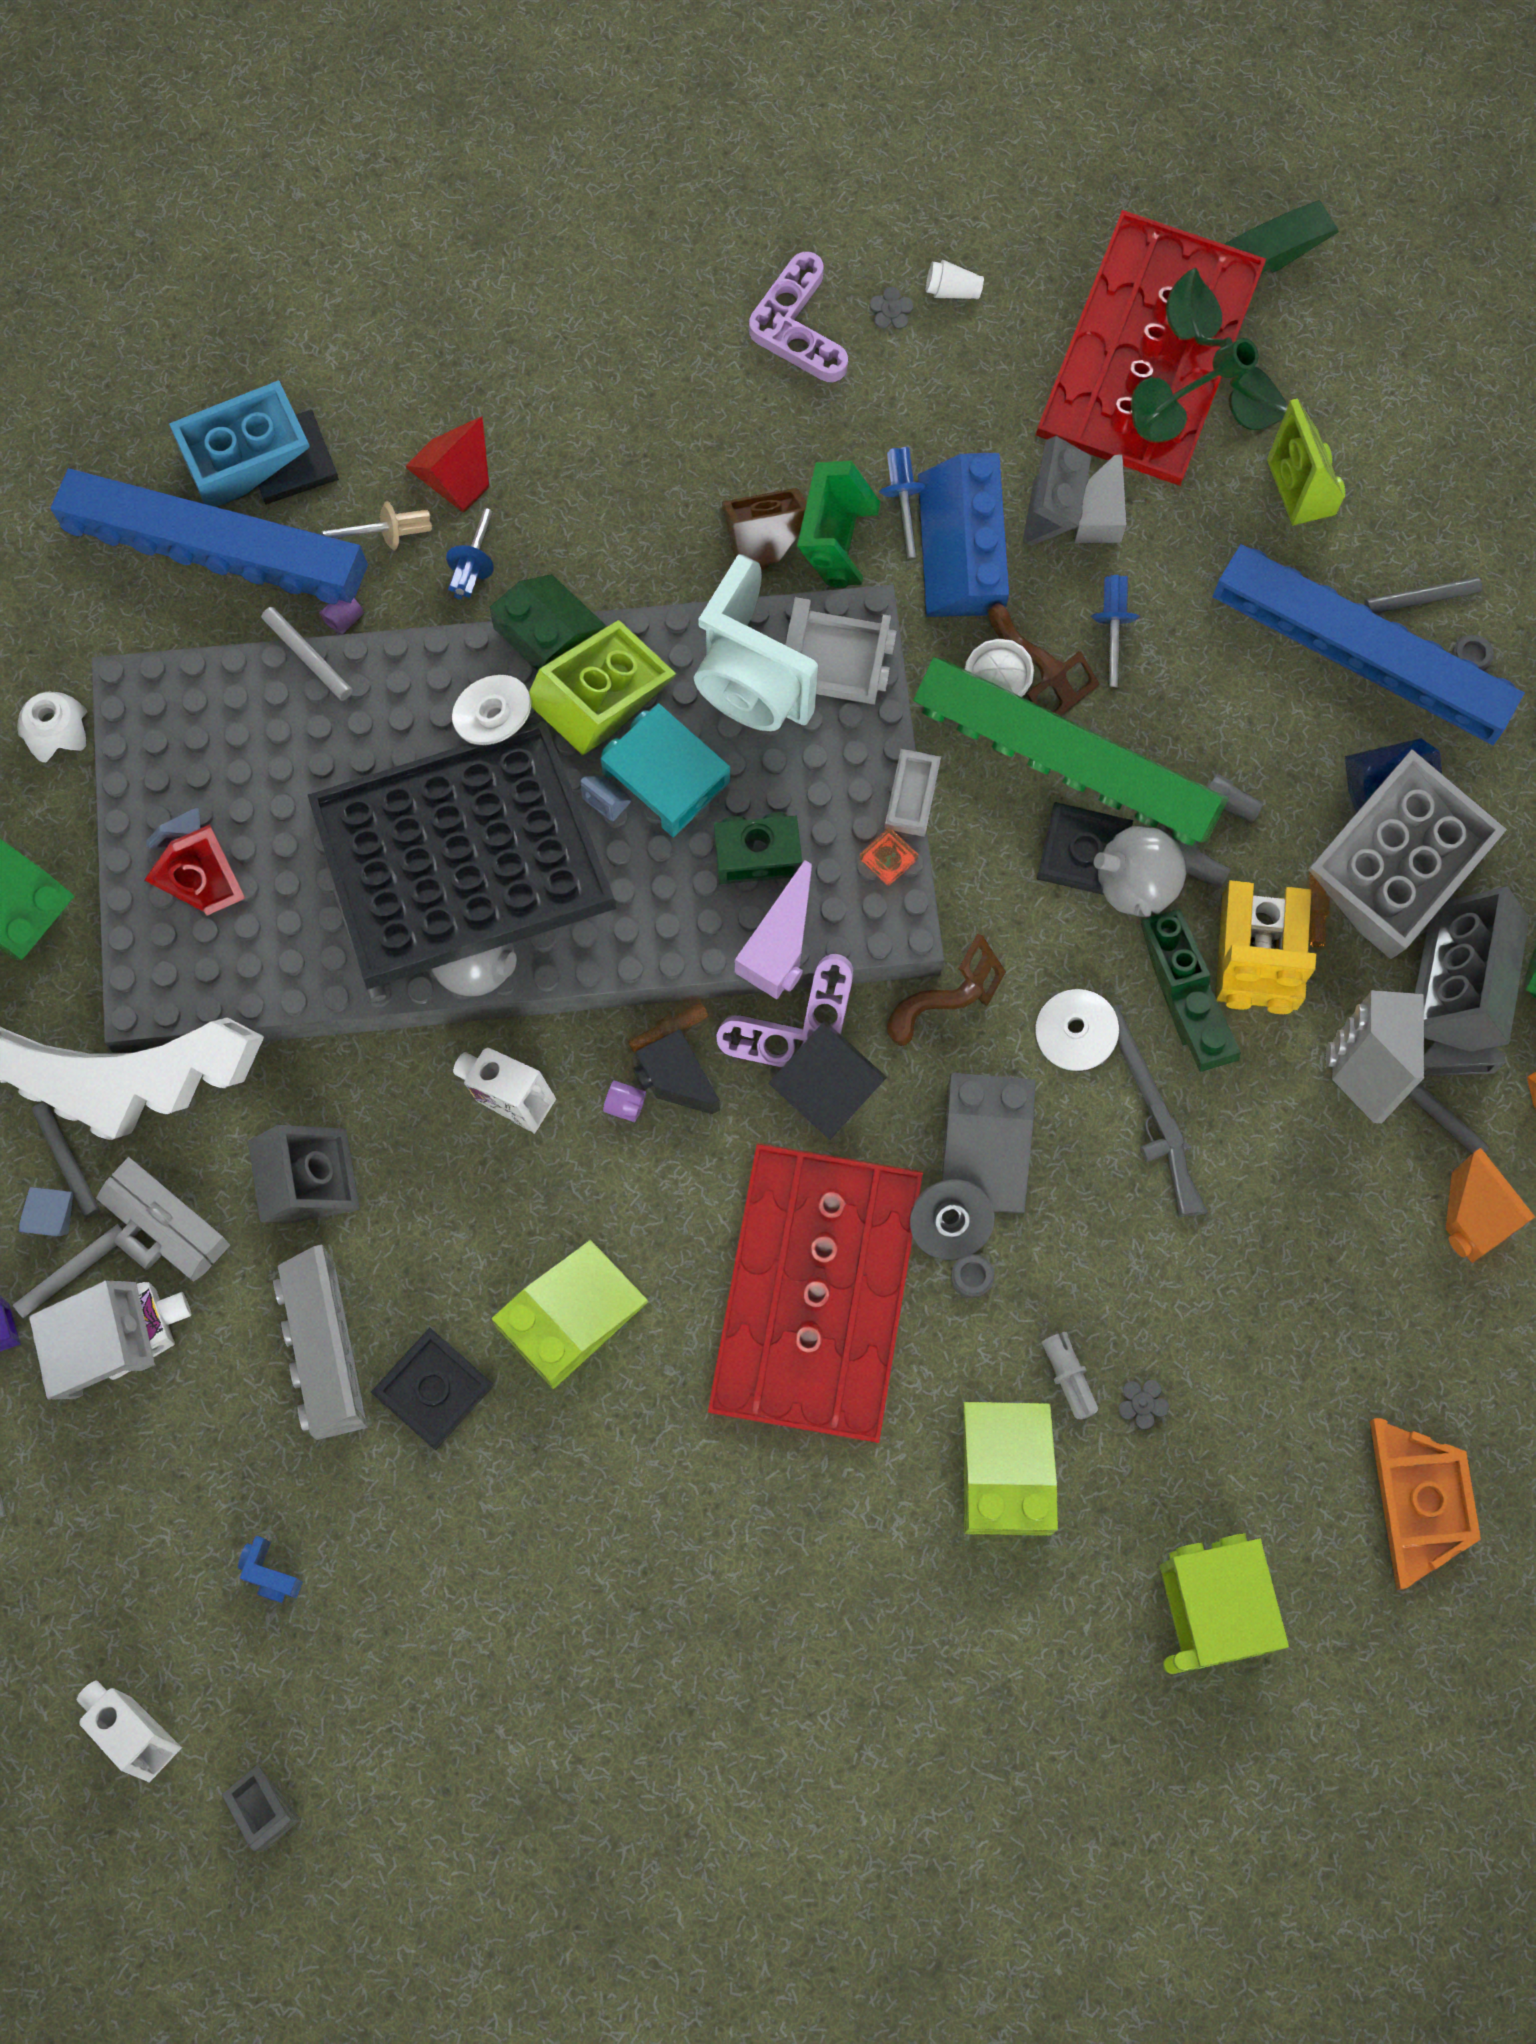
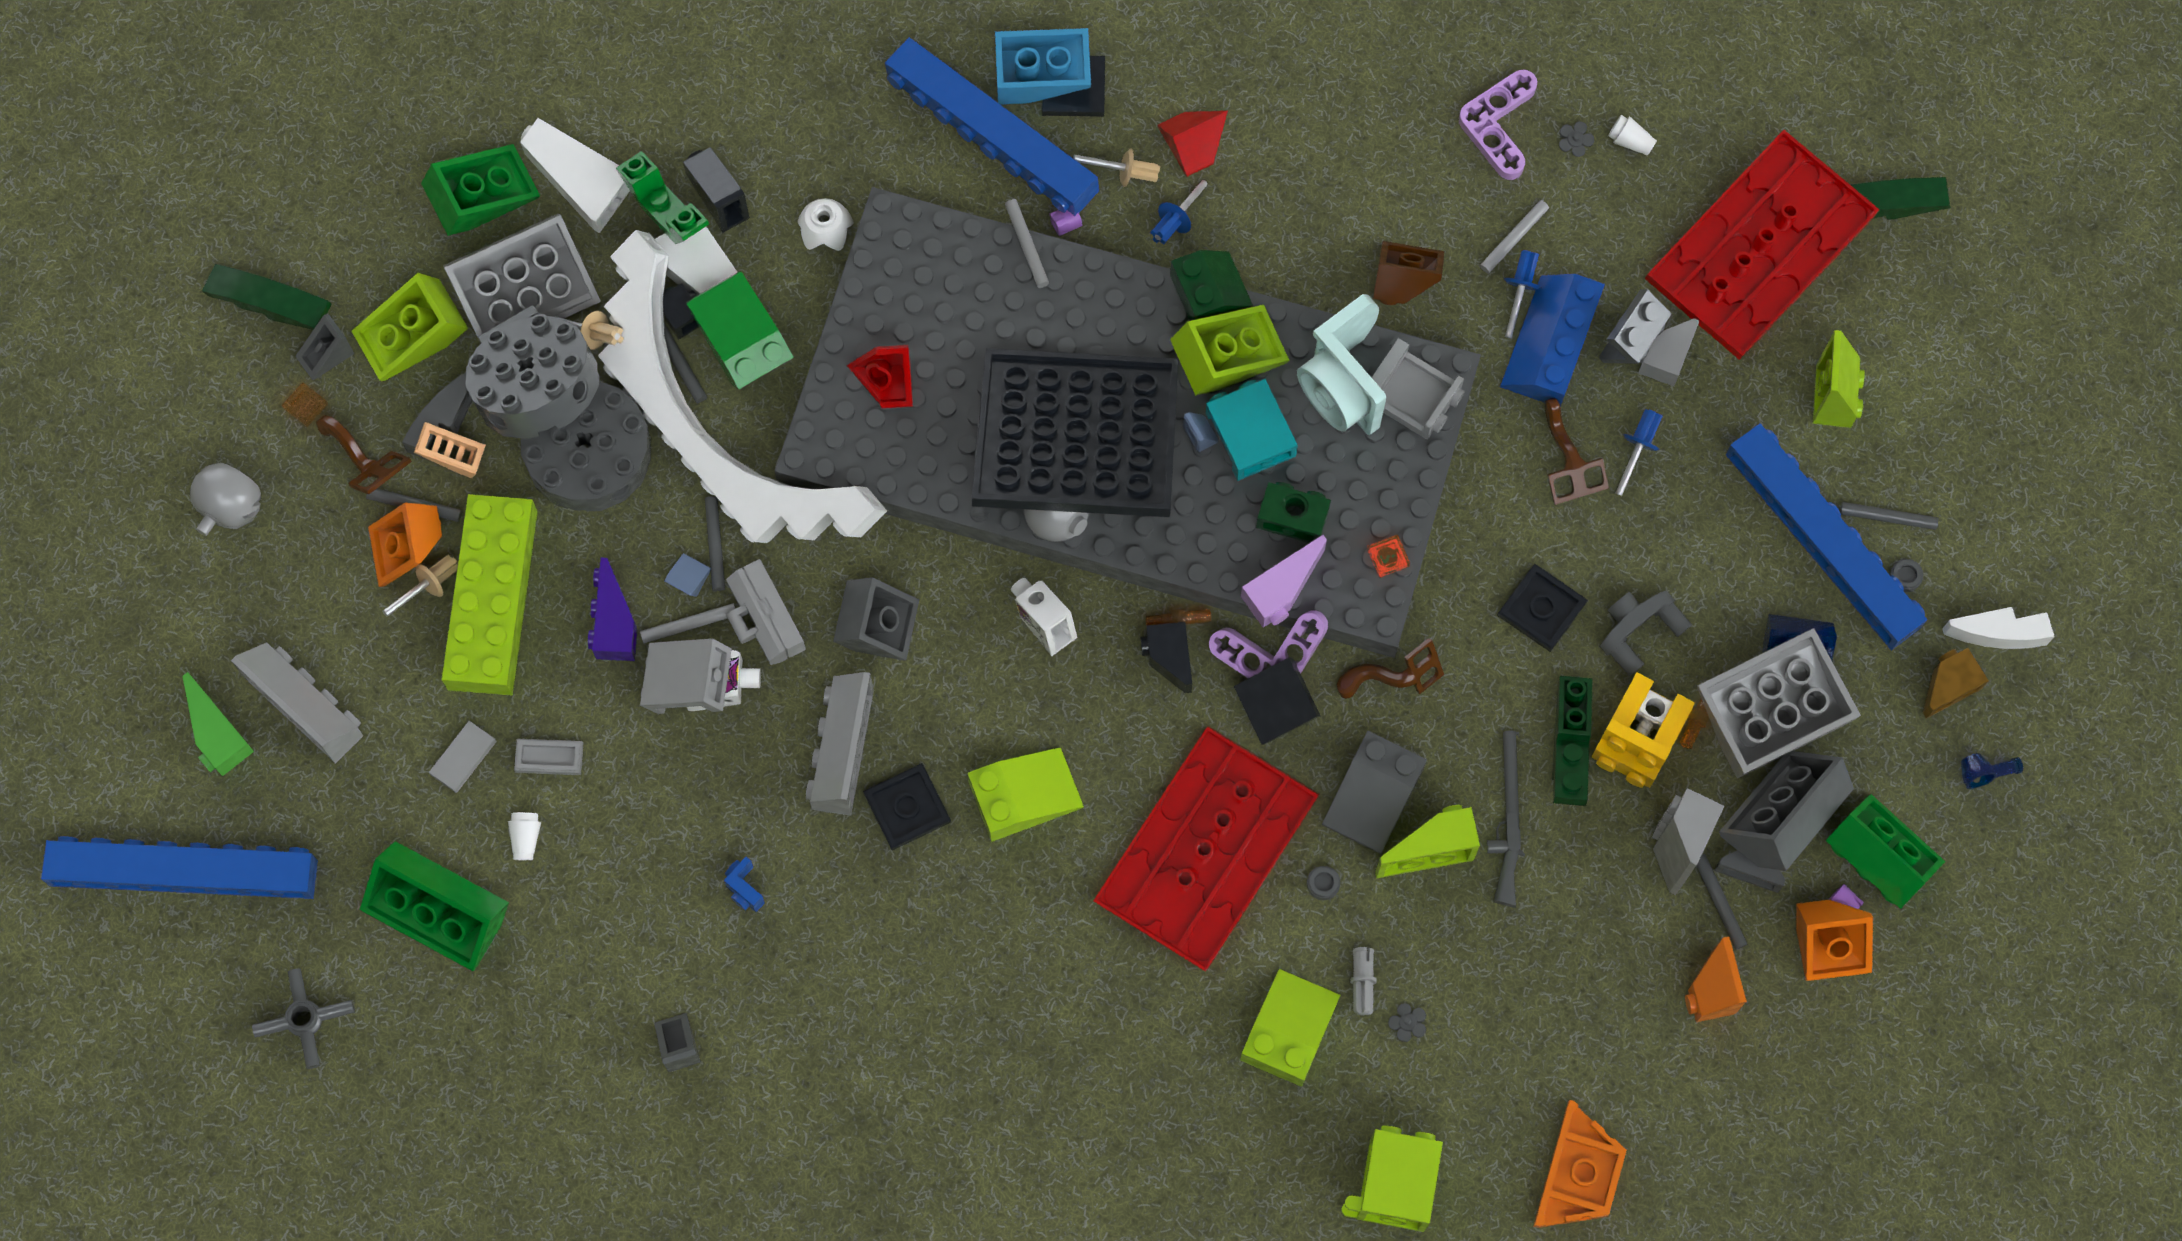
camera: 25 degrees right, 0 degrees up
(125, 1731) = (607, 952): white torso -> none
(174, 829) = (882, 338): sand blue slope -> none
(491, 709) = (1143, 336): white dish -> none
(624, 1101) = (1124, 658): medium lavender hose -> none
(833, 503) = (1455, 288): green panel -> none
(873, 431) = (1514, 236): none -> light grey bar
(912, 792) = (1426, 515): light grey tile -> none
(954, 1236) = (1321, 849): dark grey dish -> none
(1003, 664) = (1534, 450): white hat -> none
(1070, 750) = (1559, 529): green brick -> none
(1081, 1049) = (1480, 752): white dish -> none
(1099, 1165) = (1440, 842): none -> lime slope
(1141, 870) = (1573, 639): light grey piece -> none
(1196, 313) = (1806, 232): dark green plant -> none

